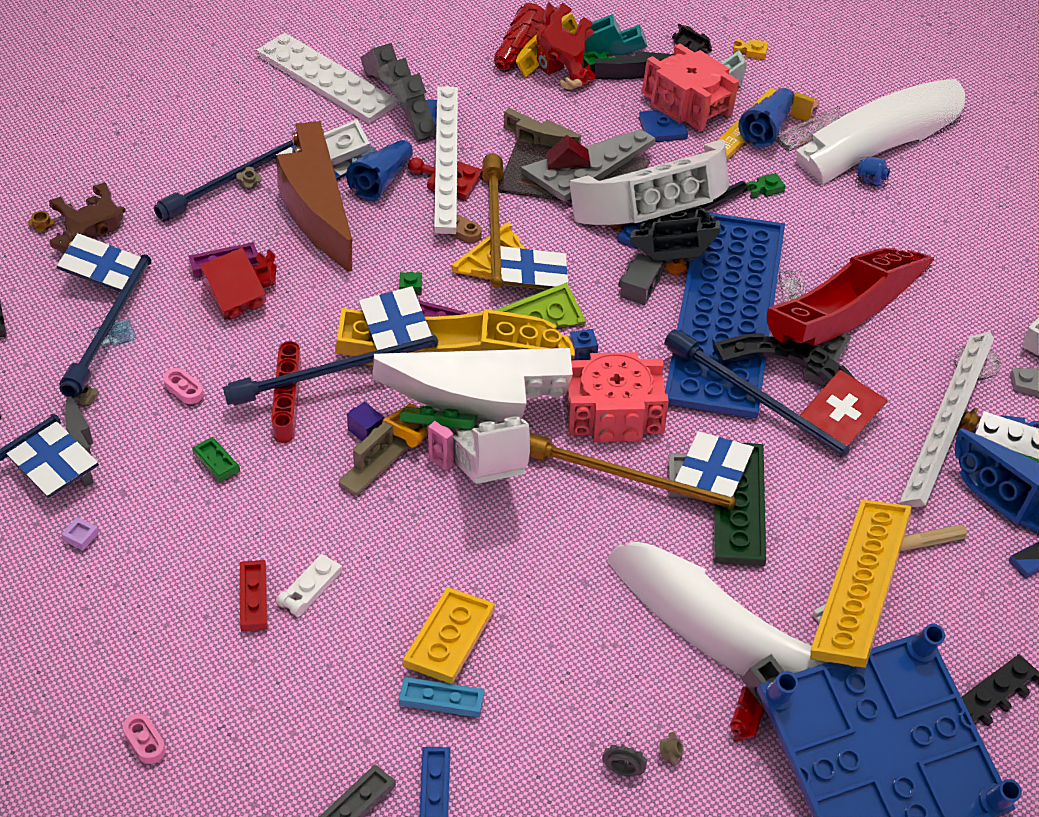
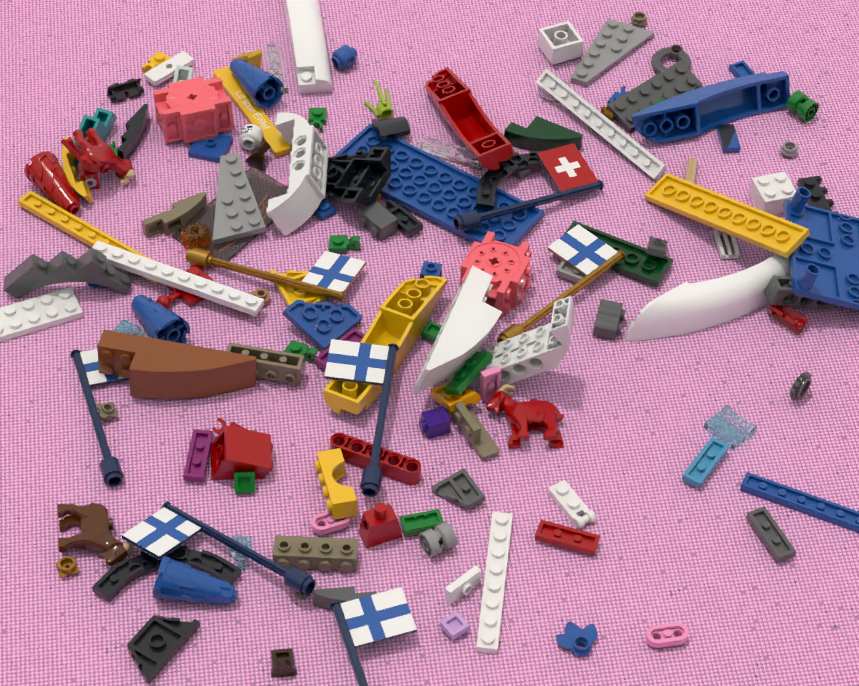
camera: 65 degrees left, 0 degrees up
(43, 301) = (182, 583): none -> blue cone
(85, 292) = (130, 569): none -> black plate
(111, 652) = (575, 637): none -> blue plate
(131, 388) = (316, 553): none -> dark tan brick
(138, 521) = (462, 585): none -> white plate
(161, 551) = (494, 583): none -> white plate
(187, 421) = (379, 525): none -> red torso
(192, 478) = (440, 538): none -> light grey wheel
(203, 302) = (244, 482): none -> green plate
(252, 358) = (340, 498): none -> yellow arch
(279, 477) = (460, 490): none -> dark grey wing
(346, 142) = (112, 322): white plate -> none
(368, 259) = (273, 364): none -> dark tan brick
(420, 499) = (527, 416): none -> red animal
(449, 635) = (658, 439): yellow plate -> none
(458, 283) = (322, 320): none -> blue plate
(476, 83) = (70, 223): none -> yellow plate
(511, 705) = (726, 431): none -> clear light blue plate
(516, 153) = (195, 236): none -> clear orange gear
(553, 305) = (378, 285): lime wing -> none
(567, 154) = (228, 206): dark red slope -> none
(590, 265) = (341, 243): none -> green plate
(621, 526) = (608, 319): none -> dark grey brick
(660, 298) = (406, 222): none -> black hinge
(668, 156) = (256, 158): none -> dark brown tile
(671, 748) = (797, 362): dark tan plate -> none
(691, 143) = (250, 136): none -> white head
(754, 59) = (167, 69): none -> white tile
(774, 536) = (656, 247): none -> dark grey plate
(789, 240) = (391, 127): none -> black slope
(822, 227) = (384, 108): none -> lime plant
(885, 372) = (541, 135): none -> dark green slope
(968, 632) = (771, 192): none -> white brick

